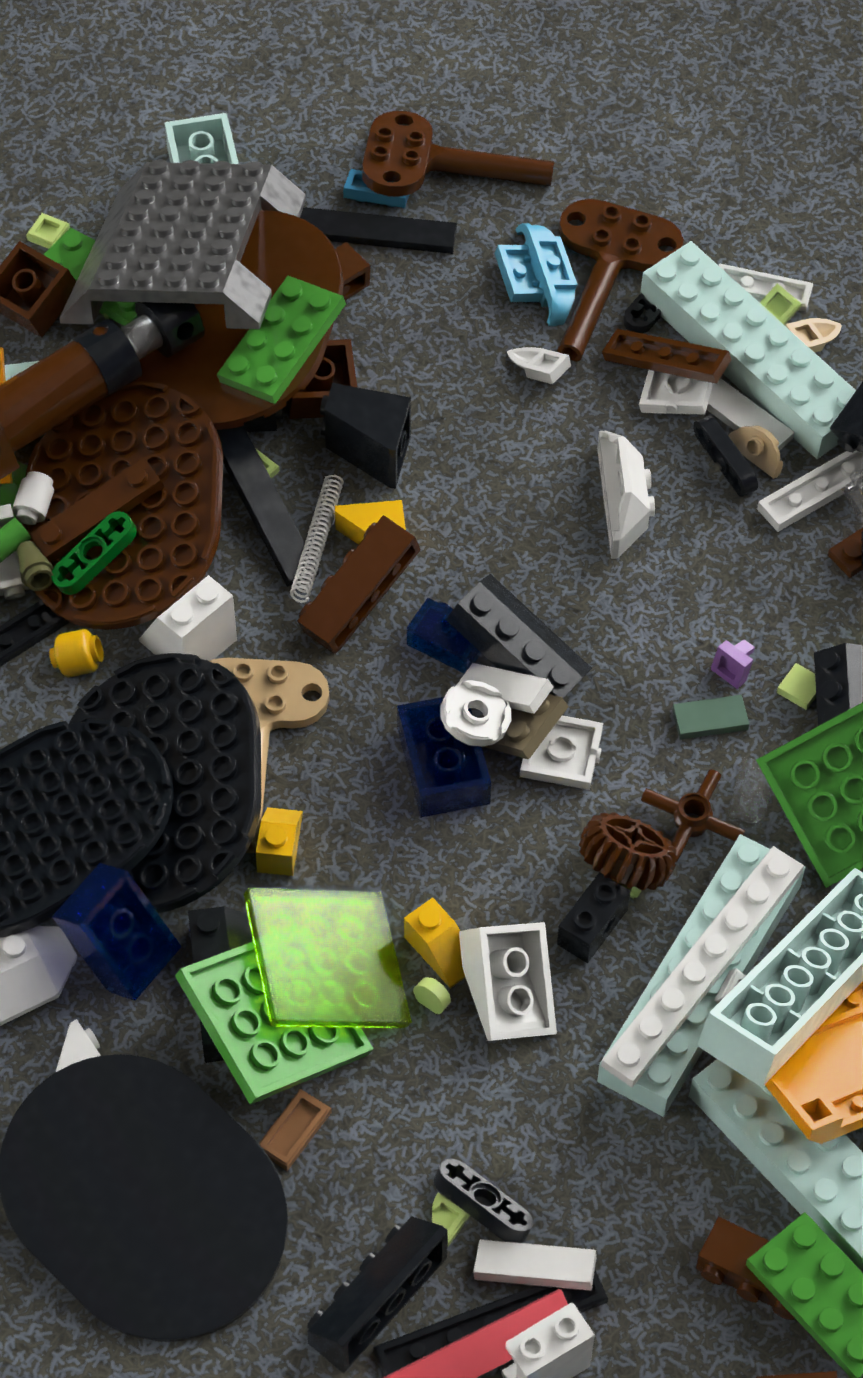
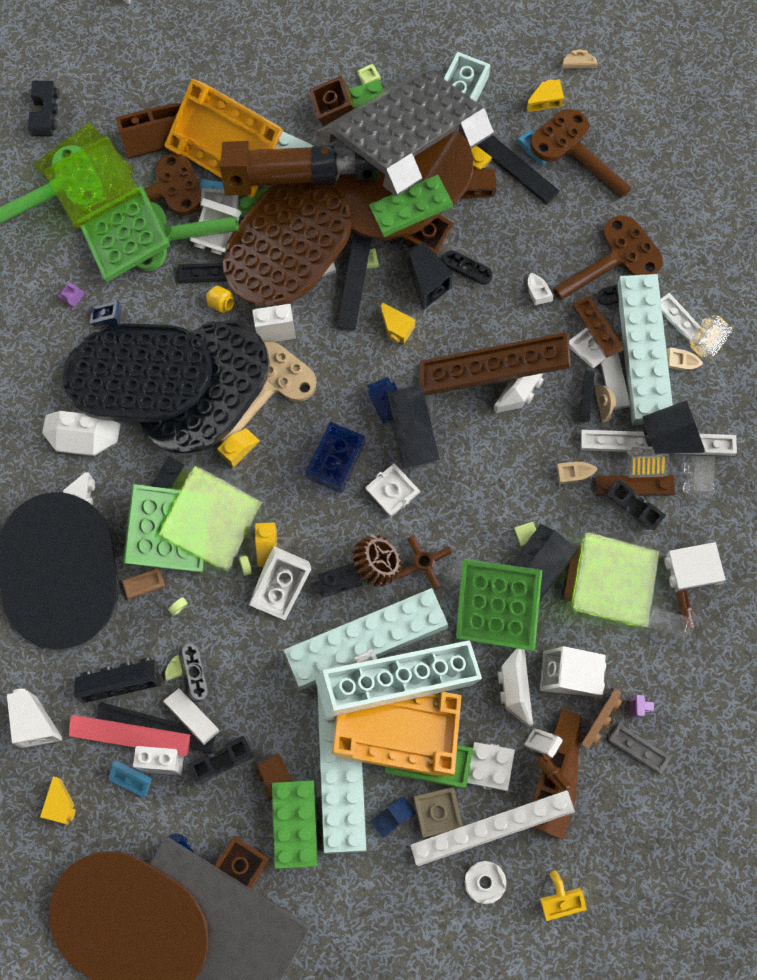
camera: 40 degrees right, 15 degrees up
(33, 498) = (250, 212): white brick -> none
(34, 567) = (227, 247): olive cone -> none
(78, 520) = (272, 237): reddish brown plate -> none
(82, 577) = (249, 253): green beam -> none
(117, 931) = (129, 445): clear blue brick -> none
(323, 539) = (359, 317): white piece -> none
(338, 115) = (546, 96): none -> yellow slope
(341, 47) = (579, 59): none -> tan plate
(358, 584) = (362, 349): reddish brown brick -> none
(378, 1122) = (177, 606): none -> yellowish green tile
(421, 385) = (465, 260): none -> black beam
(465, 726) = (356, 460): white tile -> none
(518, 689) = (386, 444): white tile -> none
(530, 729) = (382, 465): dark tan plate -> none
(538, 272) = (577, 241): medium azure plate -> none
(573, 480) = (495, 364): none -> reddish brown plate
(638, 1292) = (217, 763): none -> black arch
(701, 967) = (361, 638): white plate -> none
(710, 717) = (473, 520): sand green tile -> none
(733, 662) = (503, 501): medium lavender tile -> none
(781, 304) = (677, 334): yellowish green tile -> none
(795, 563) = (574, 471): none -> tan plate
(826, 281) = (710, 337): none -> clear brick

